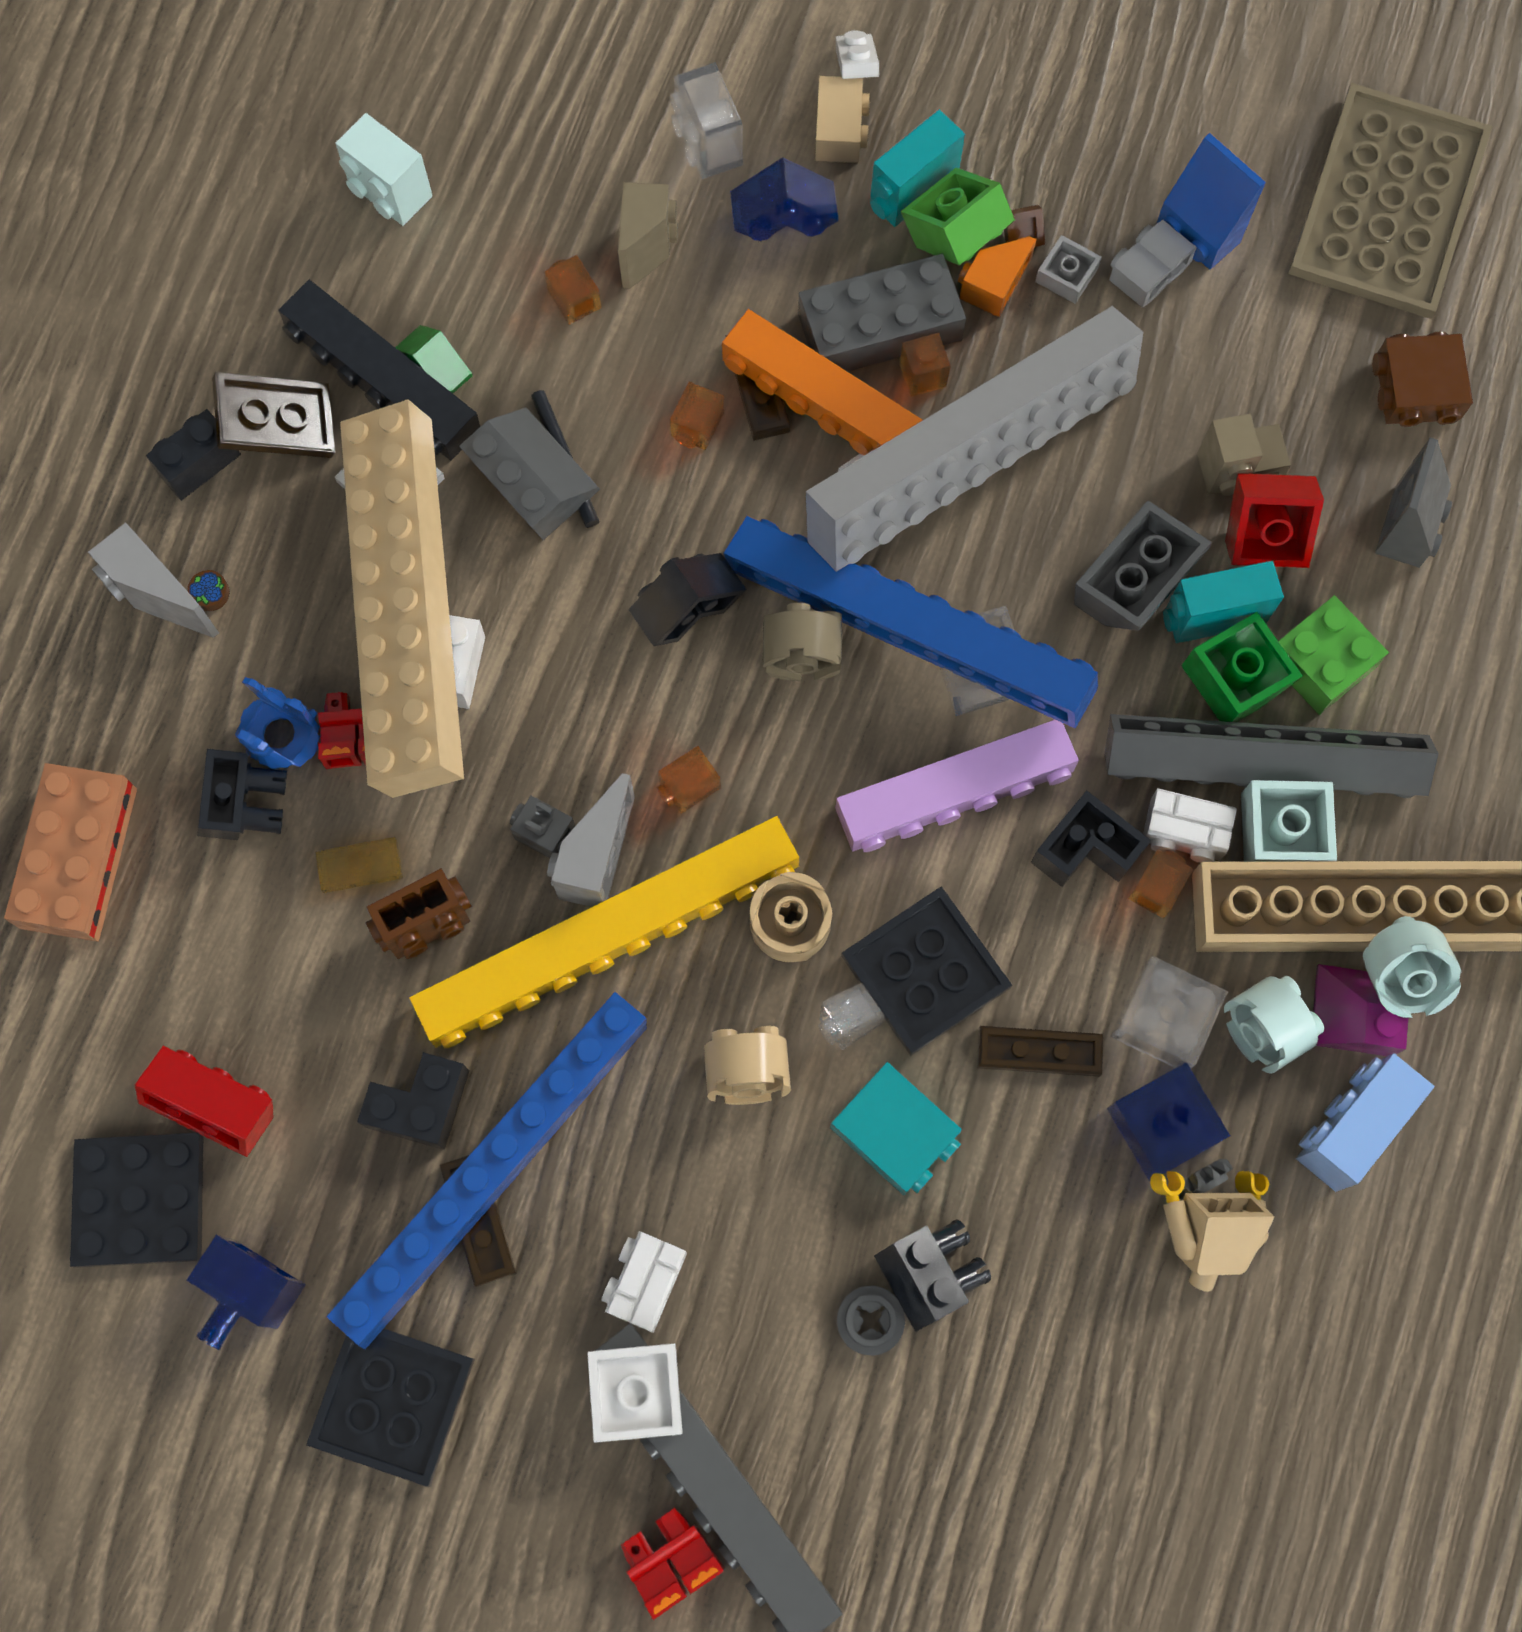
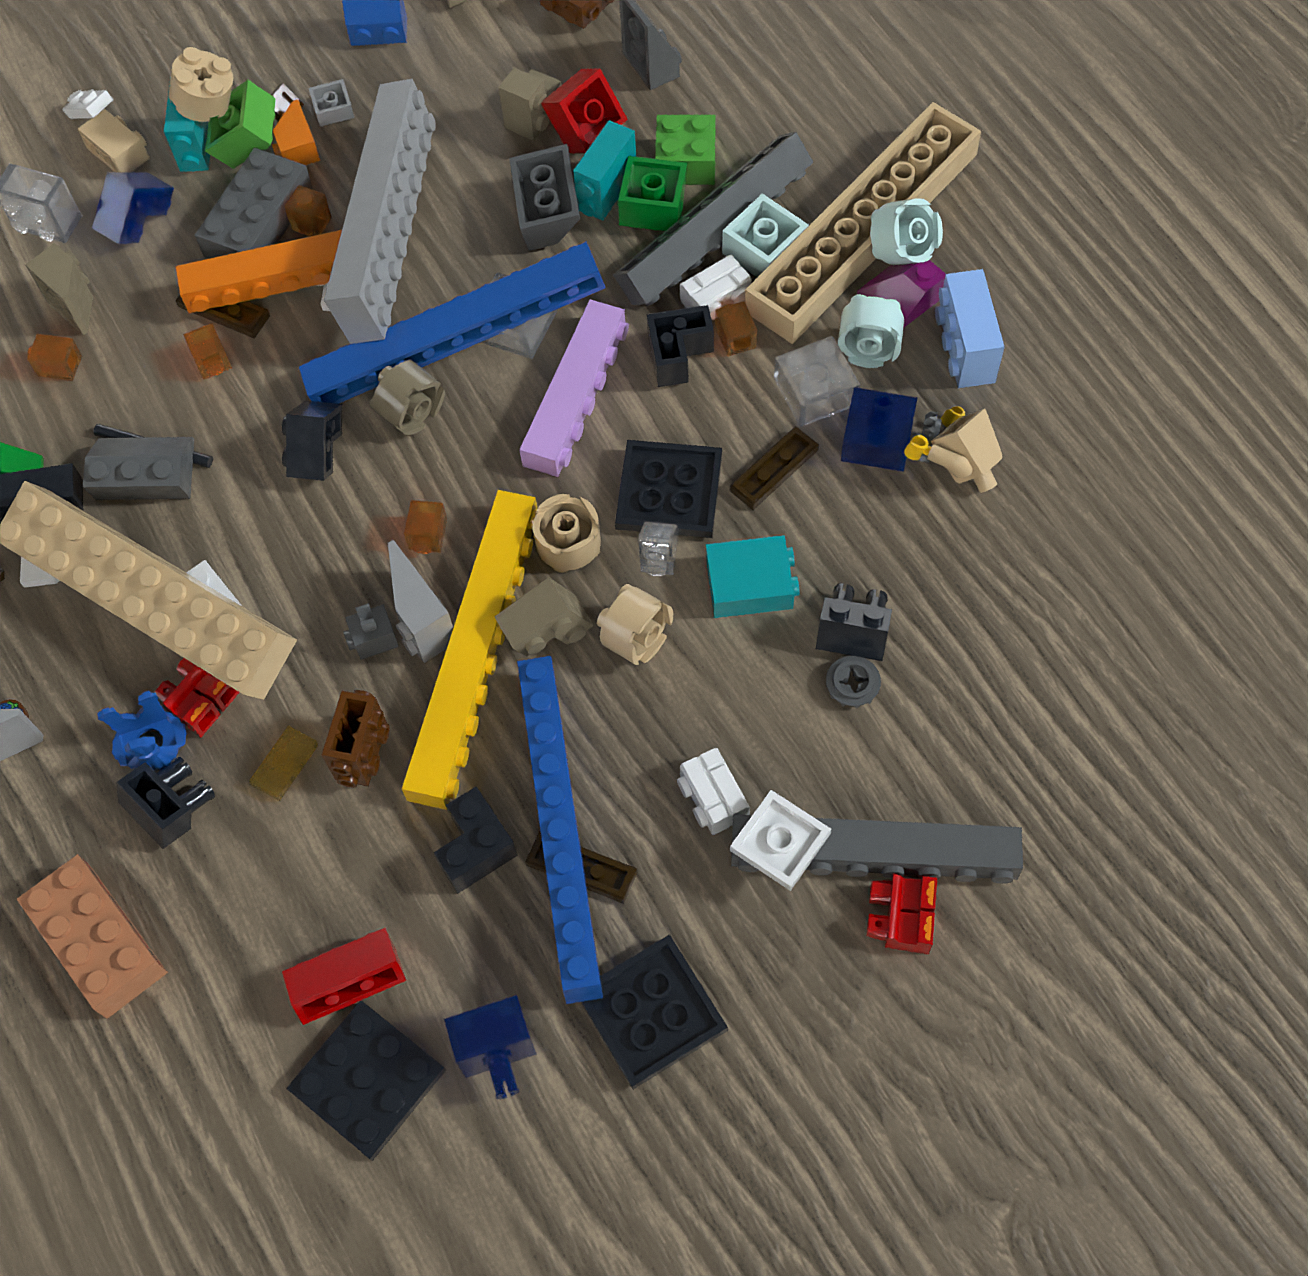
camera: 45 degrees left, 10 degrees down
(682, 976) = (542, 615): none -> dark tan brick
(964, 137) = (200, 84): none -> tan brick
(1151, 263) = (372, 60): light grey brick -> none

